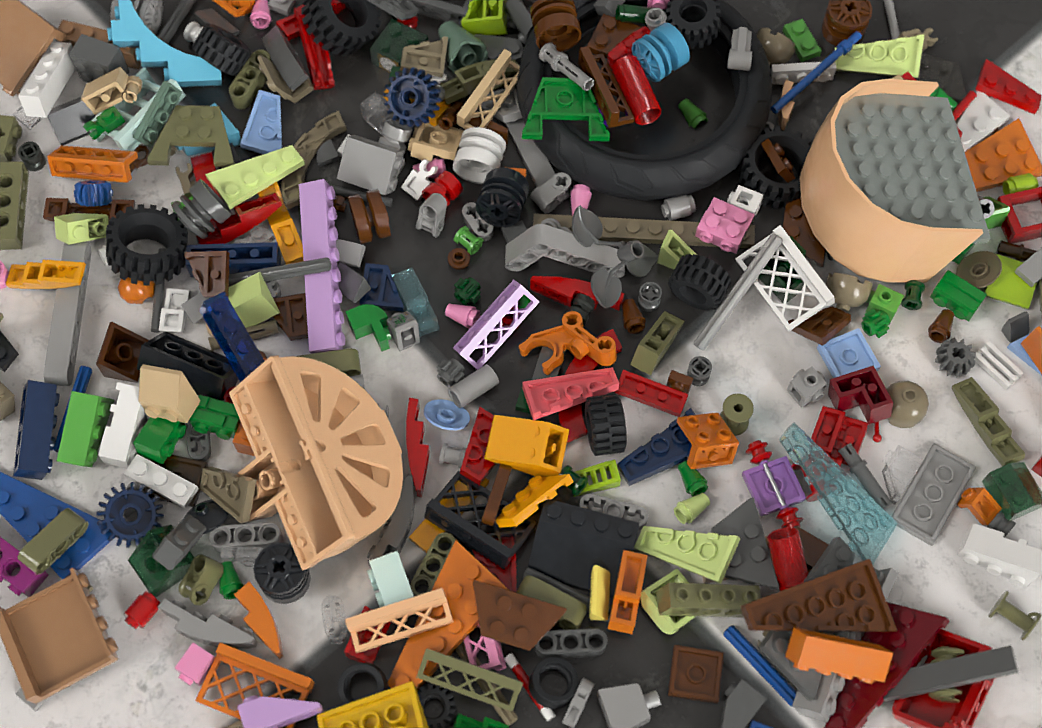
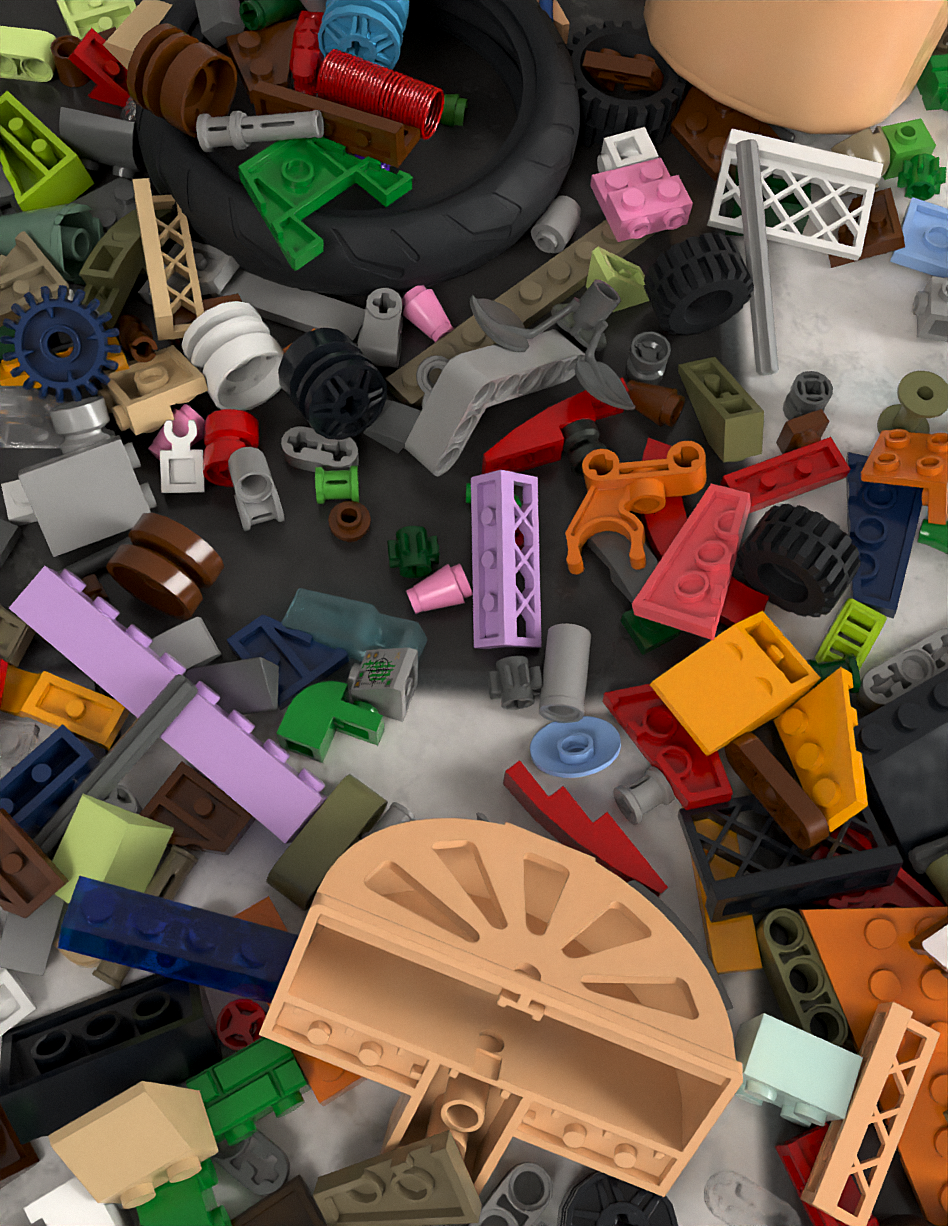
camera: 50 degrees left, 0 degrees up
(913, 295) = (915, 101): dark green bush -> none

